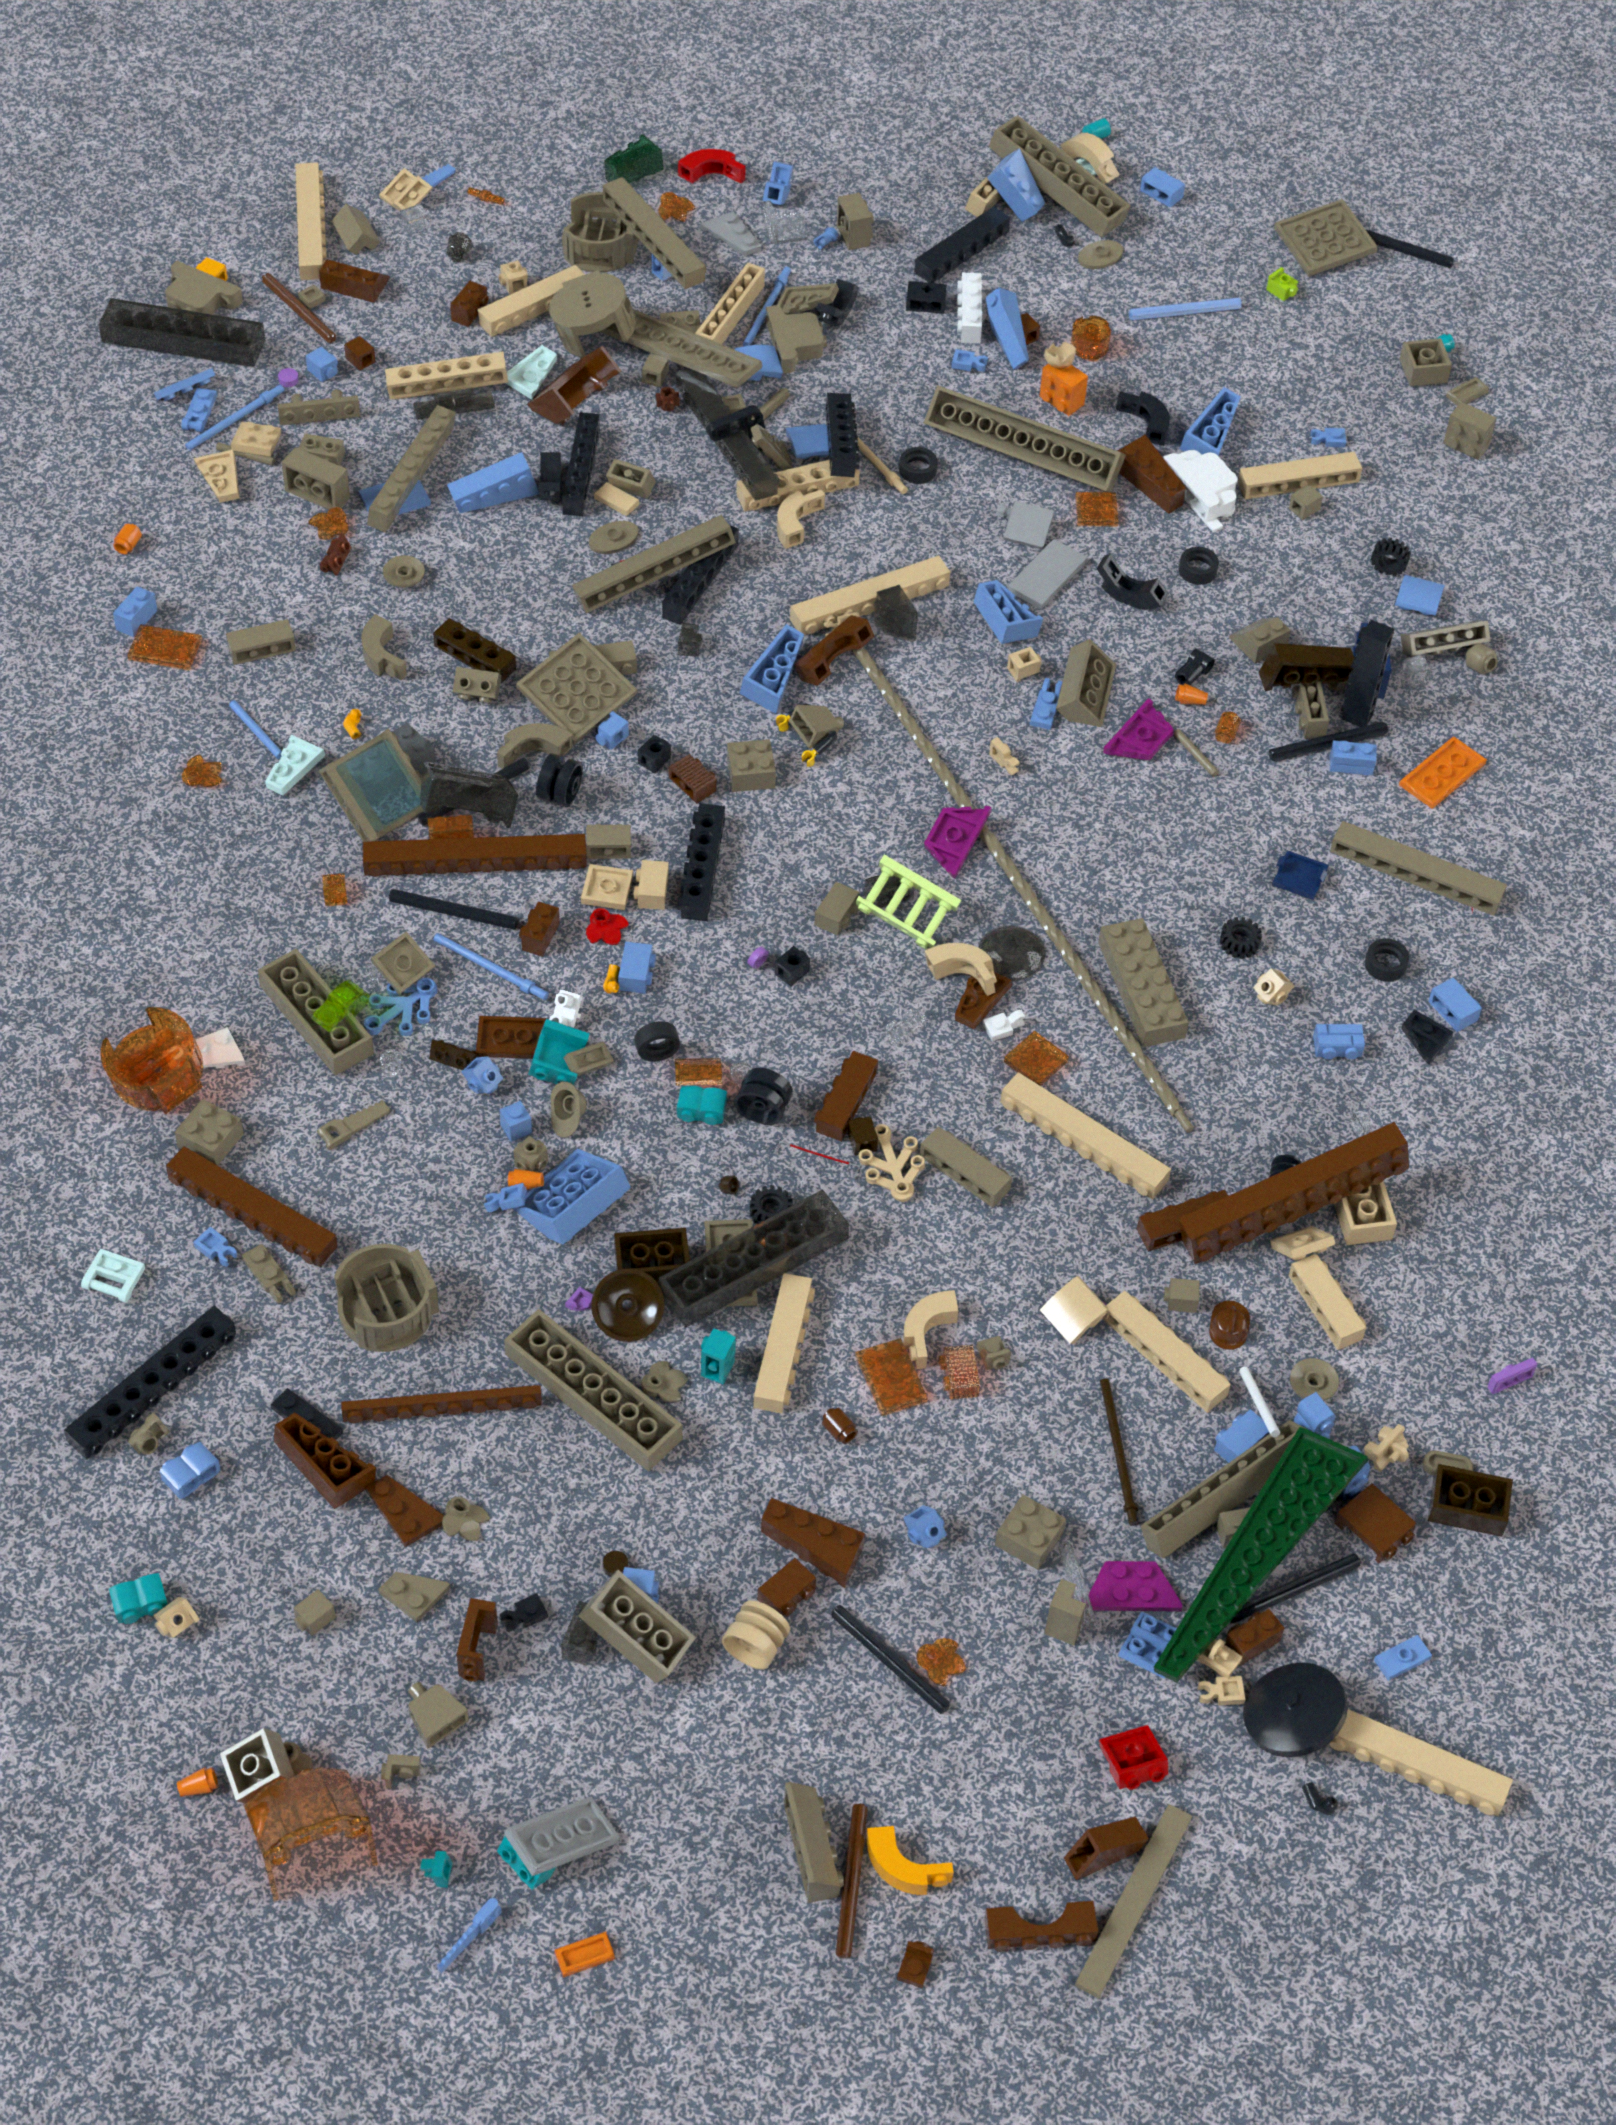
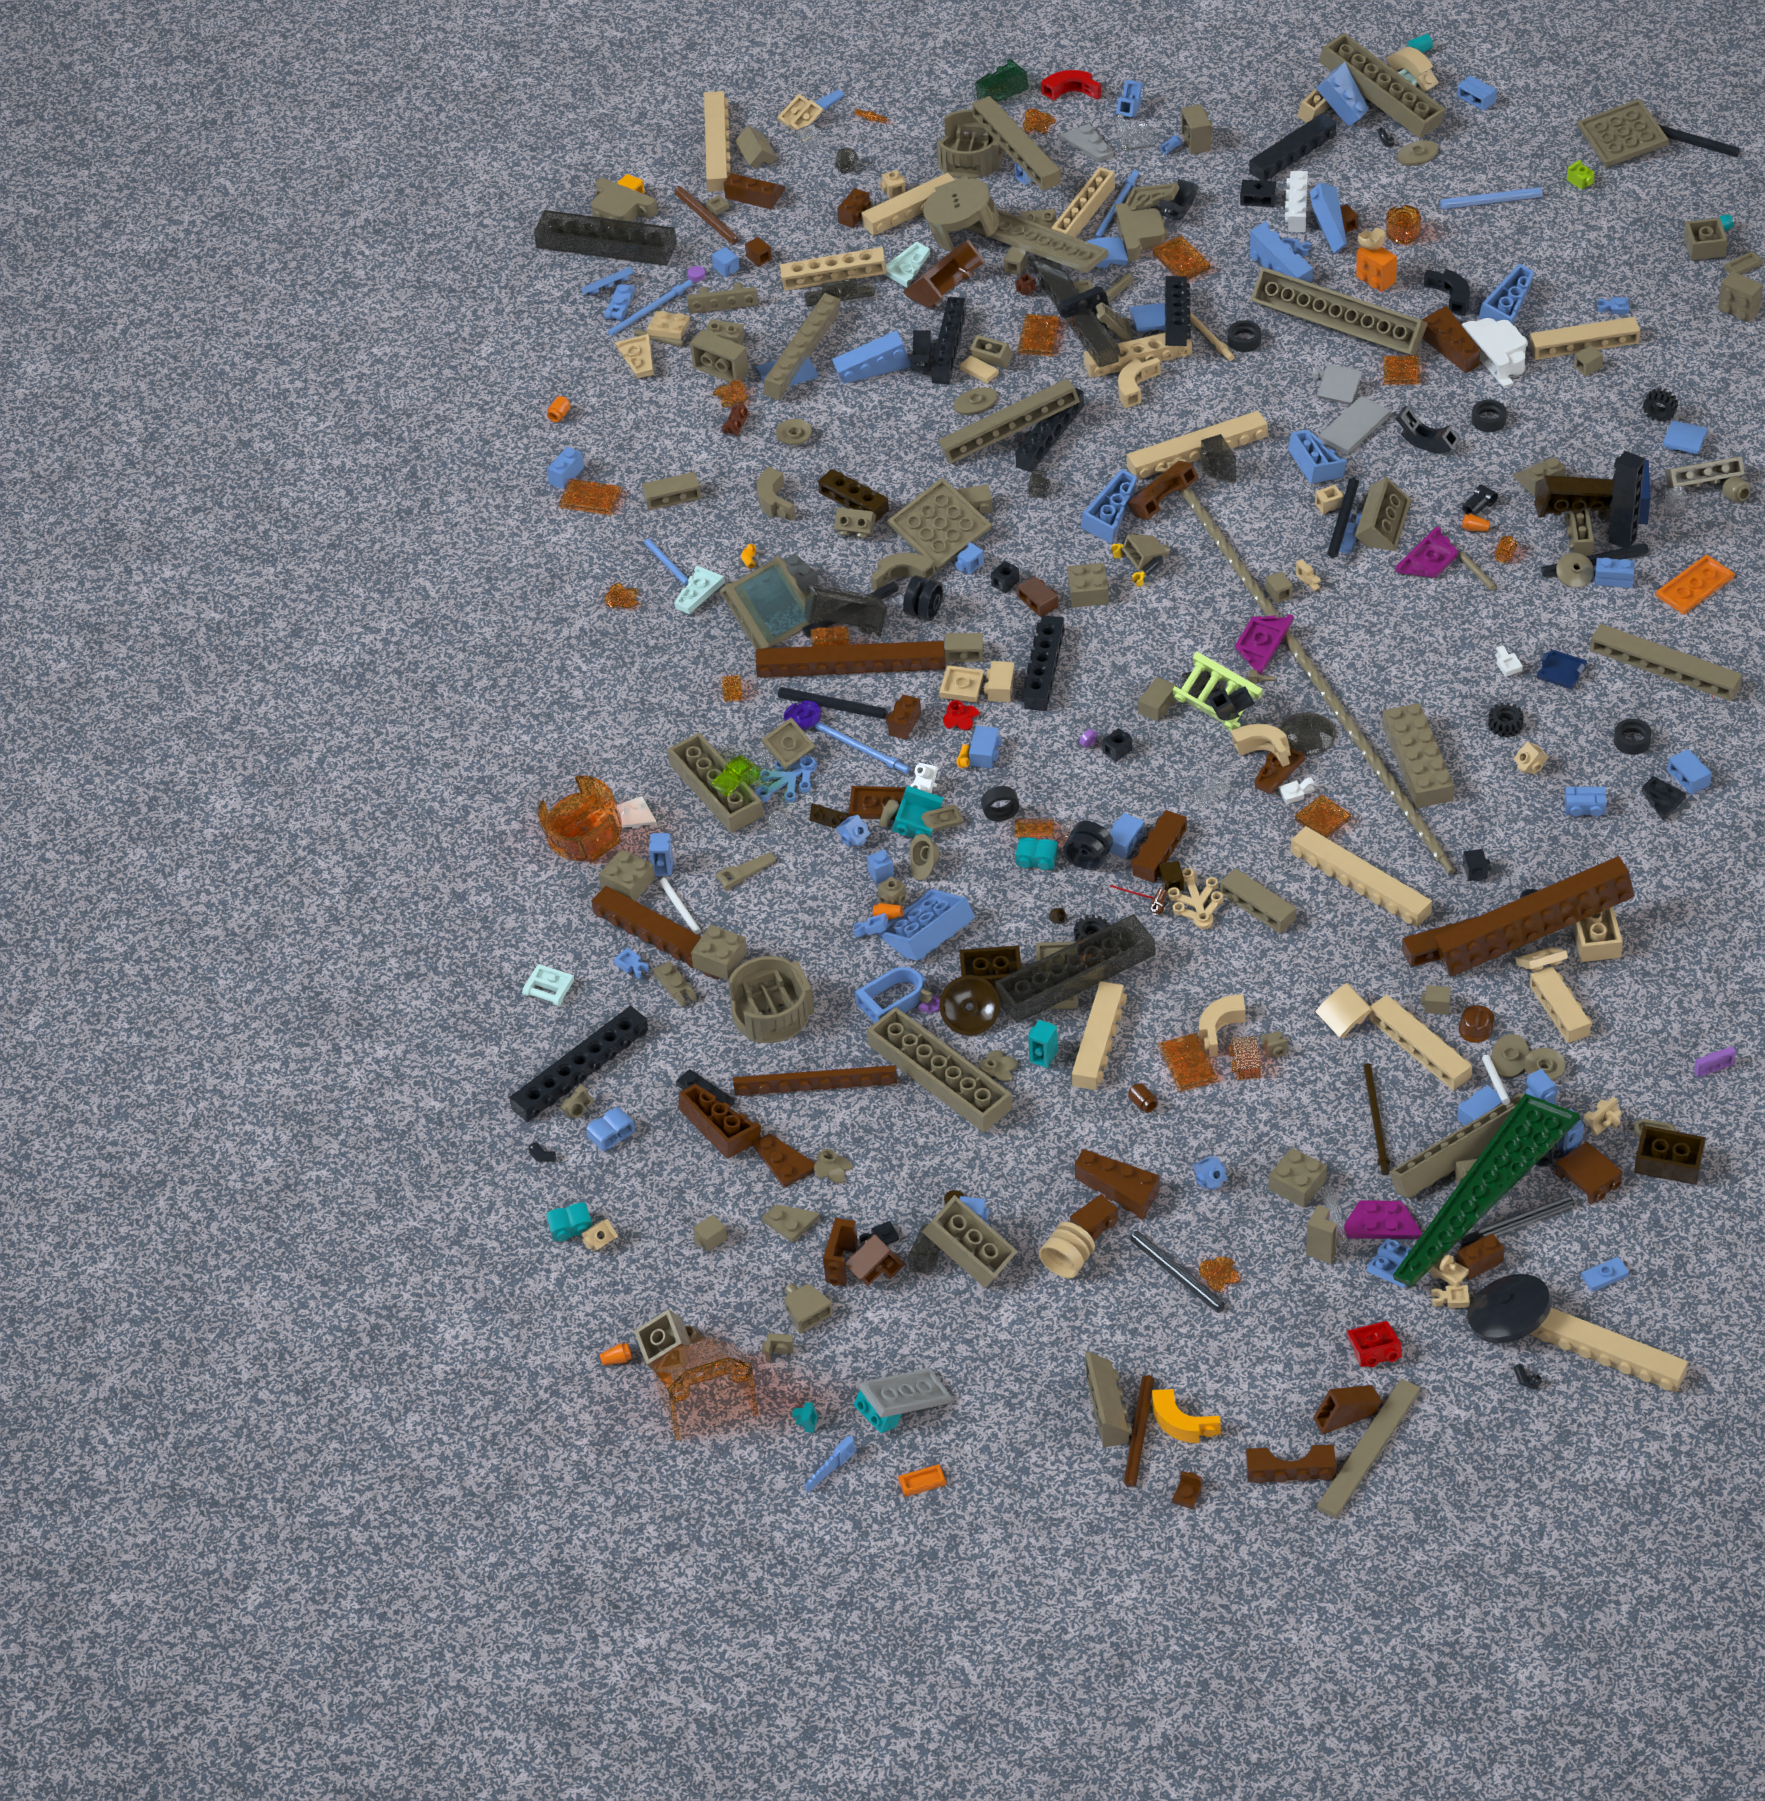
camera: 10 degrees right, 5 degrees down
(101, 1504) = (540, 1155): none -> black arm
(251, 1105) = (661, 854): none -> medium blue brick
(274, 1170) = (680, 906): none -> white bar
(322, 1237) = (719, 952): none -> dark tan brick
(420, 924) = (804, 714): none -> dark purple tile
(517, 1652) = (874, 1259): none -> reddish brown brick
(524, 1049) = (889, 810): none -> dark tan arm
(539, 1263) = (894, 976): none -> medium blue window
(574, 1290) = (926, 995): none -> dark tan hand
(684, 459) = (1039, 335): none -> clear orange plate
(807, 1080) = (1126, 834): none -> medium blue brick
(842, 371) = (1181, 258): none -> clear orange plate
(846, 1170) = (1157, 904): none -> reddish brown arm
(924, 920) = (1230, 705): none -> black brick
(948, 882) = (1255, 678): none -> dark tan hand
(950, 371) = (1275, 255): none -> medium blue wedge
(971, 770) = (1278, 587): none -> dark tan brick
(1041, 687) = (1343, 518): none -> black axle
(1217, 1121) = (1476, 865): none -> black brick
(1238, 867) = (1507, 662): none -> white plate
(1271, 1367) = (1509, 1055): none -> dark tan piece
(1301, 759) = (1572, 577): none -> dark tan dish

